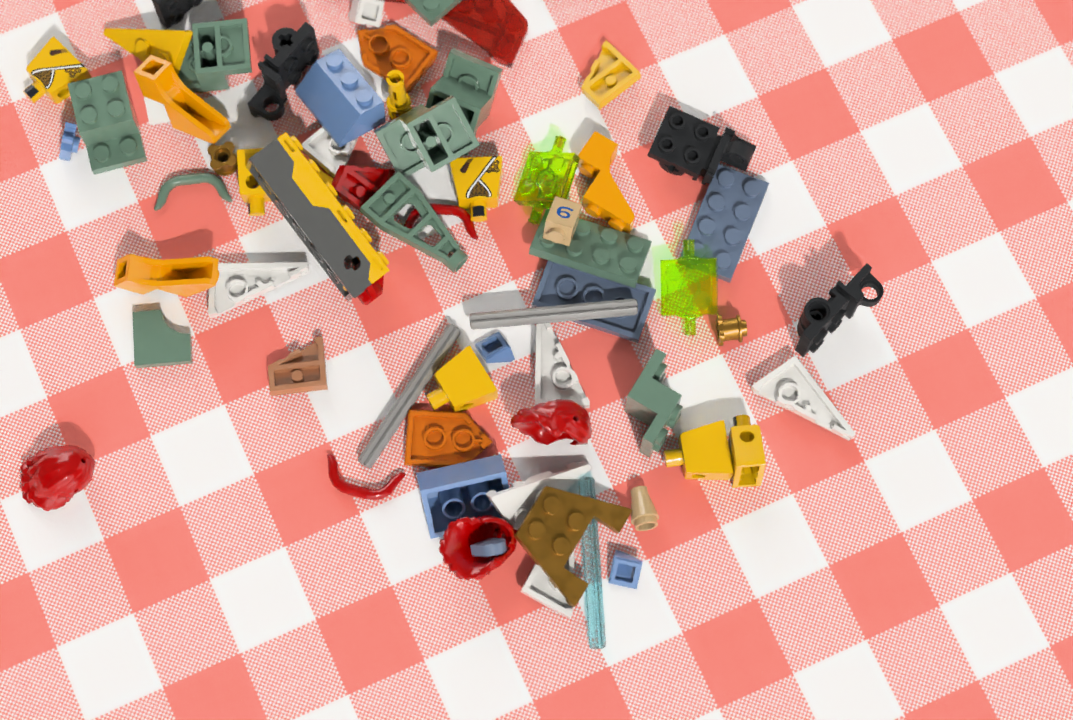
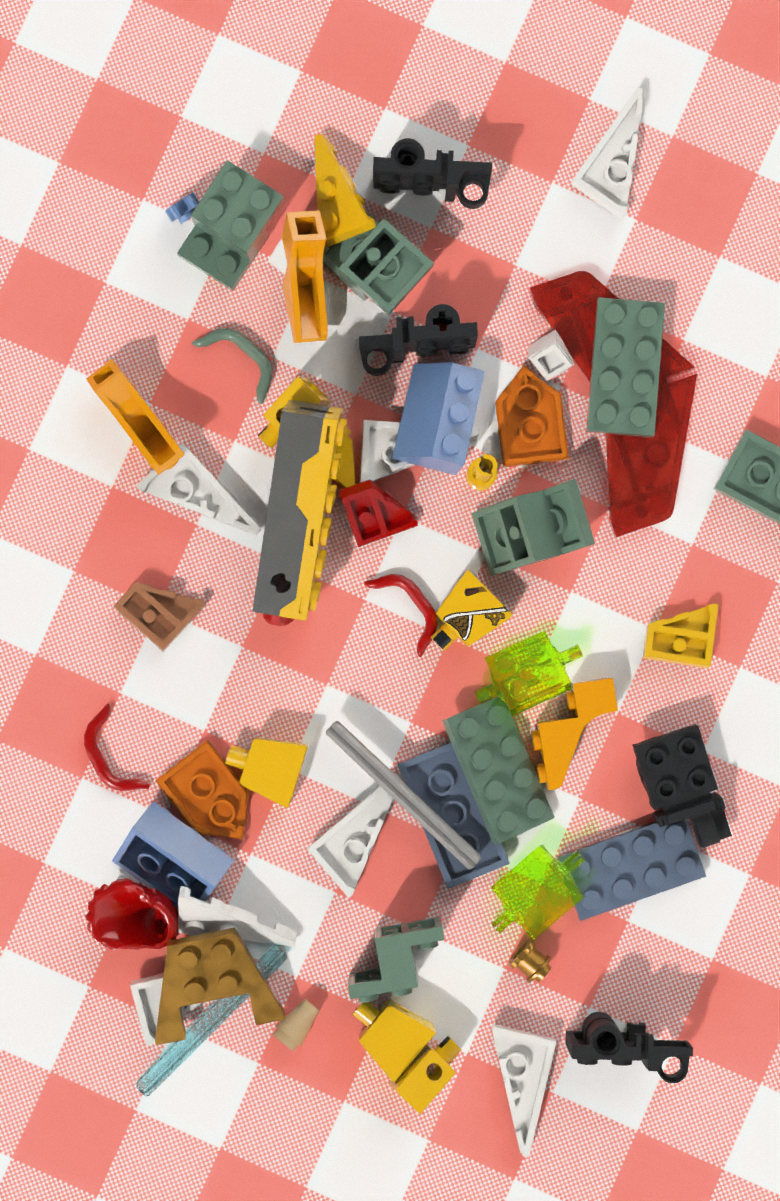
camera: 50 degrees right, 15 degrees up
(52, 72) = (236, 131): yellow torso -> none
(157, 343) = (74, 462): sand green tile -> none
(223, 153) = (287, 353): pearl gold brick -> none
(391, 199) = (381, 549): sand green plate -> none
(409, 396) = (221, 728): light grey axle -> none
(427, 137) = (470, 539): sand green bracket -> none
(489, 547) = (139, 929): sand blue tile -> none
(495, 349) = (328, 765): medium blue slope -> none
(554, 422) = (304, 885): red piece -> none
(562, 221) = (493, 730): tan brick -> none
(625, 570) = (230, 1054): medium blue slope -> none

